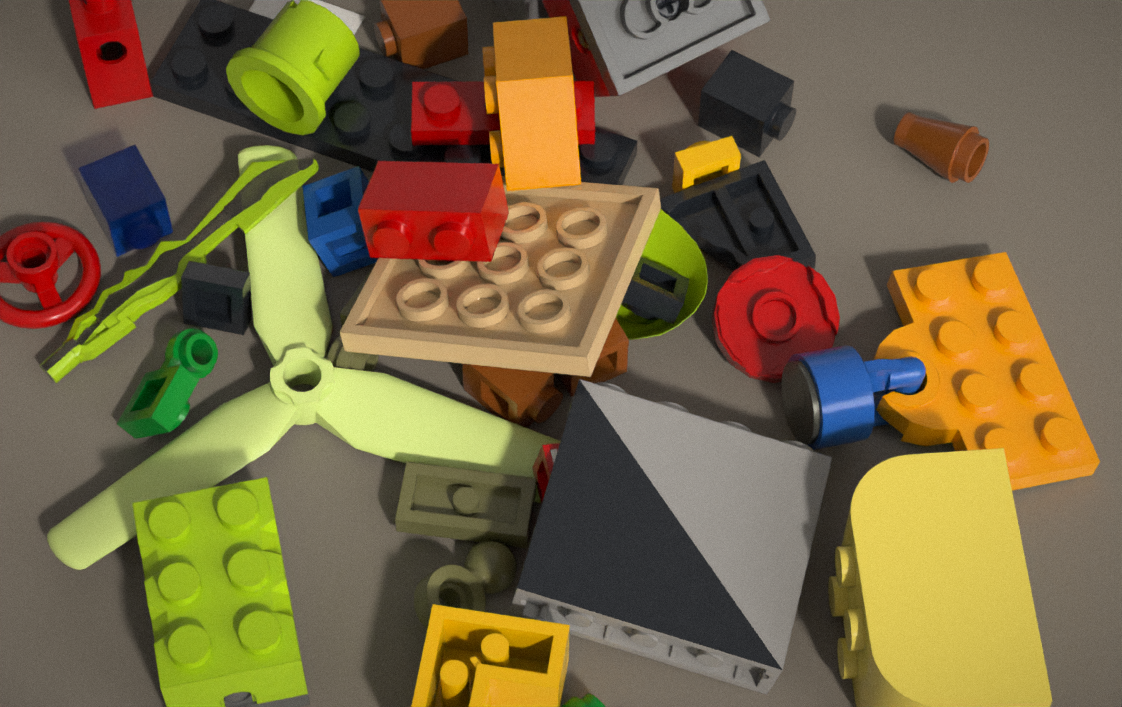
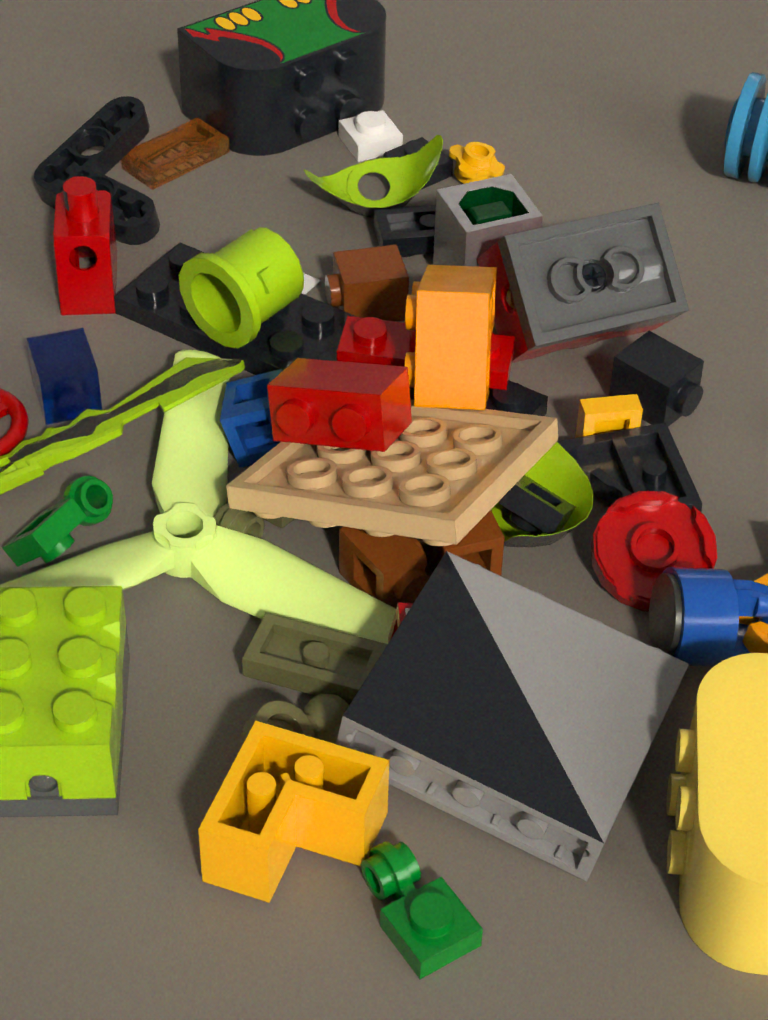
camera: 10 degrees right, 15 degrees down
(216, 297) = (124, 458): black plate -> none

